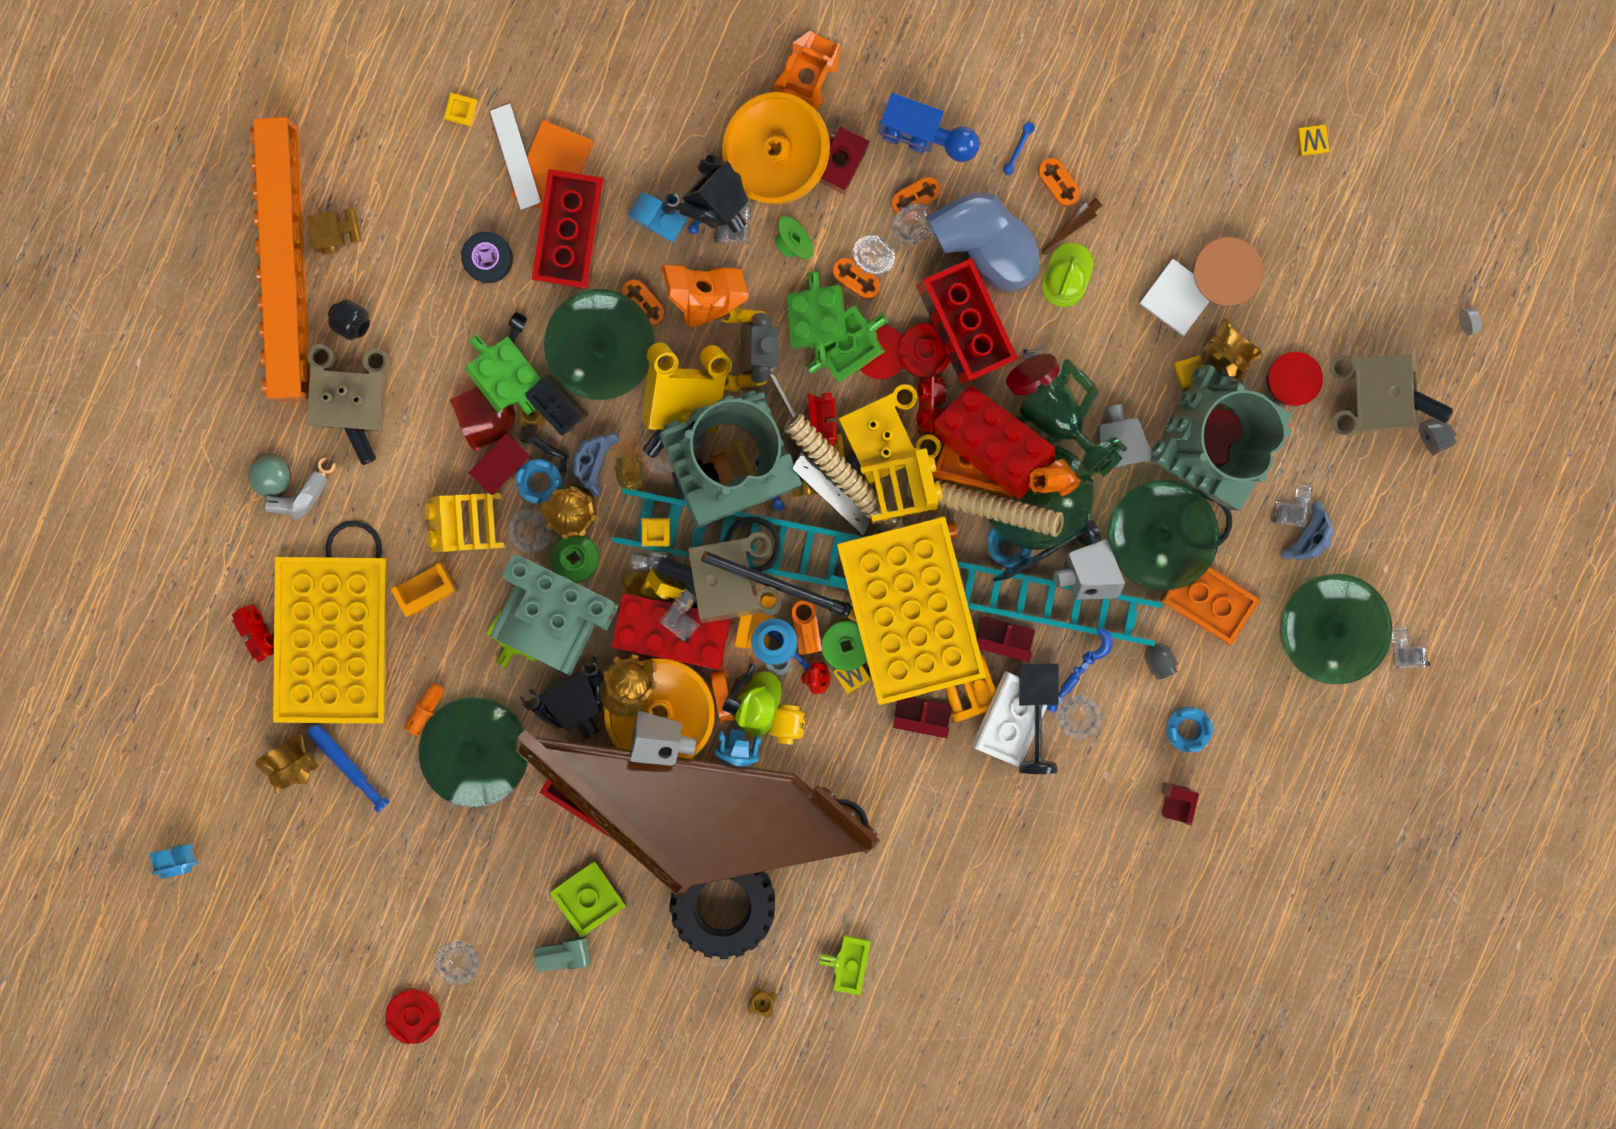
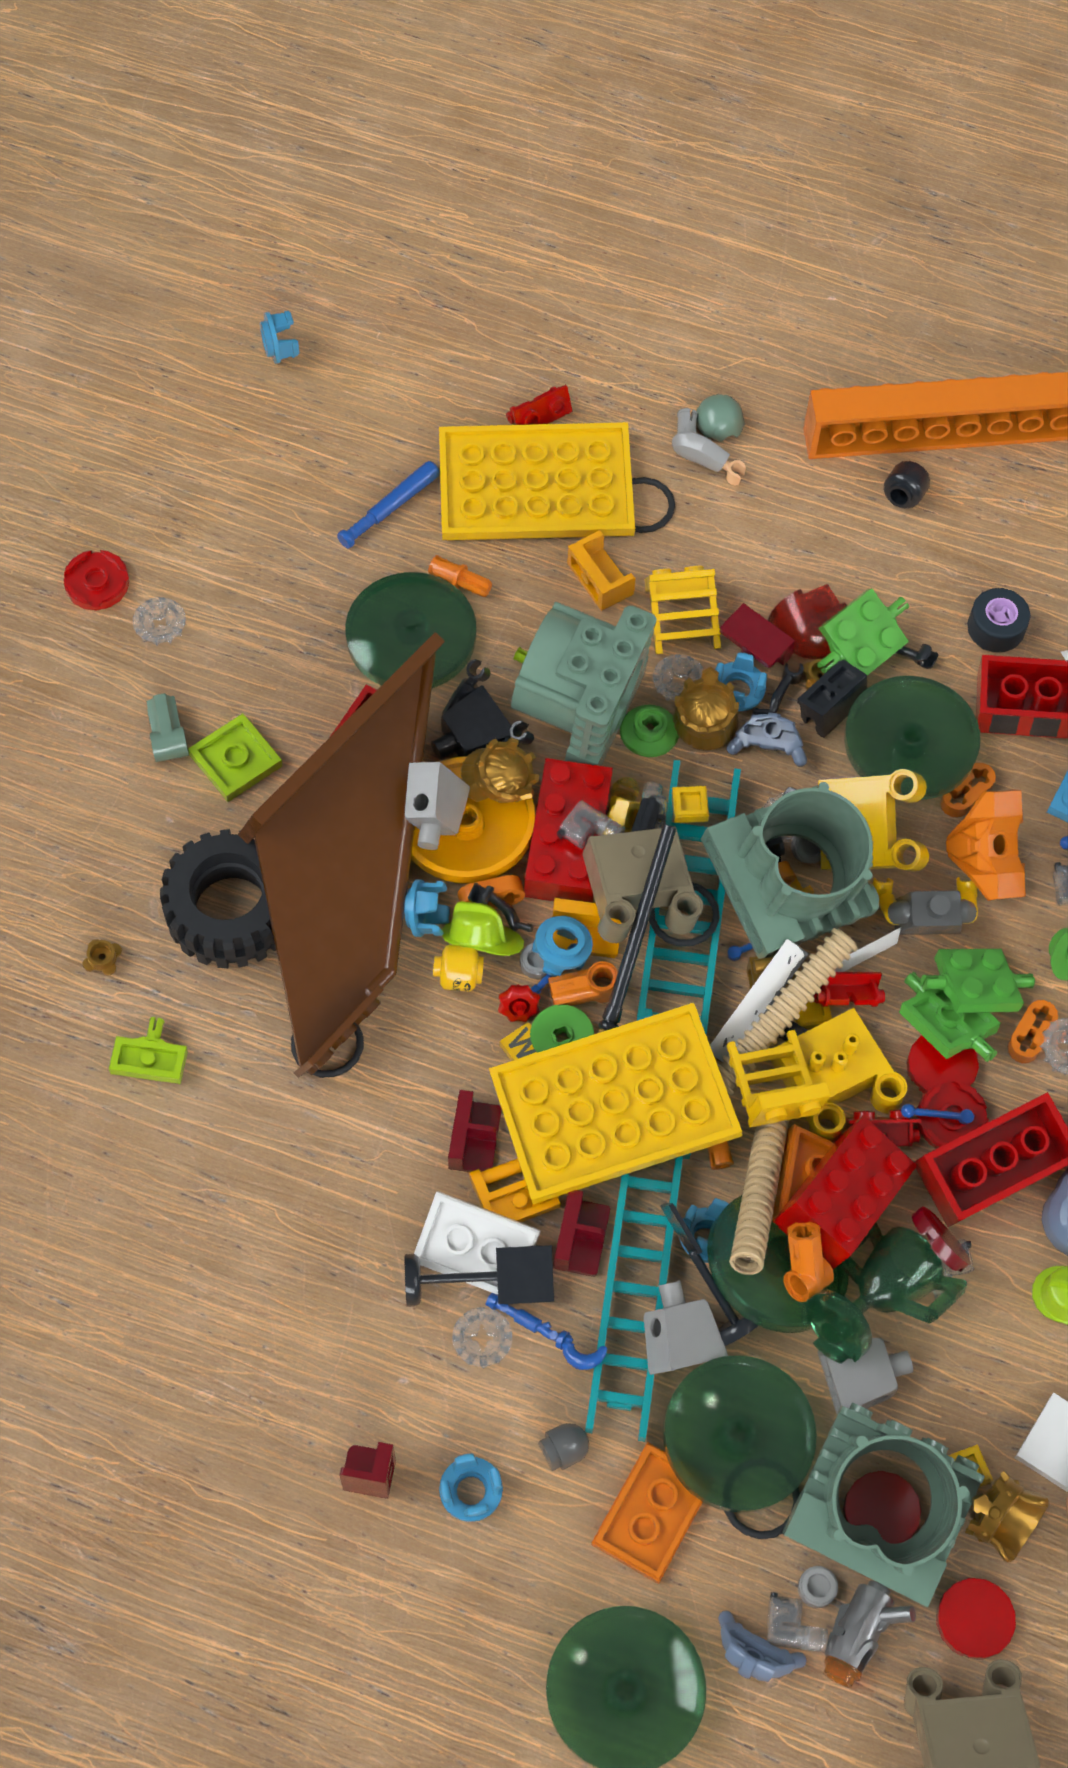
camera: 85 degrees right, 25 degrees down
(288, 763) = (390, 439): pearl gold hair -> none
(328, 231) = (1005, 465): pearl gold brick -> none
(348, 399) = (816, 488): dark tan piece -> none
(630, 472) = (760, 777): clear yellow piece -> none
(928, 341) = (964, 1117): none -> blue hinge
(1269, 489) = (817, 1587): none -> light grey tile
(1304, 465) = (858, 1630): none -> flat silver piece

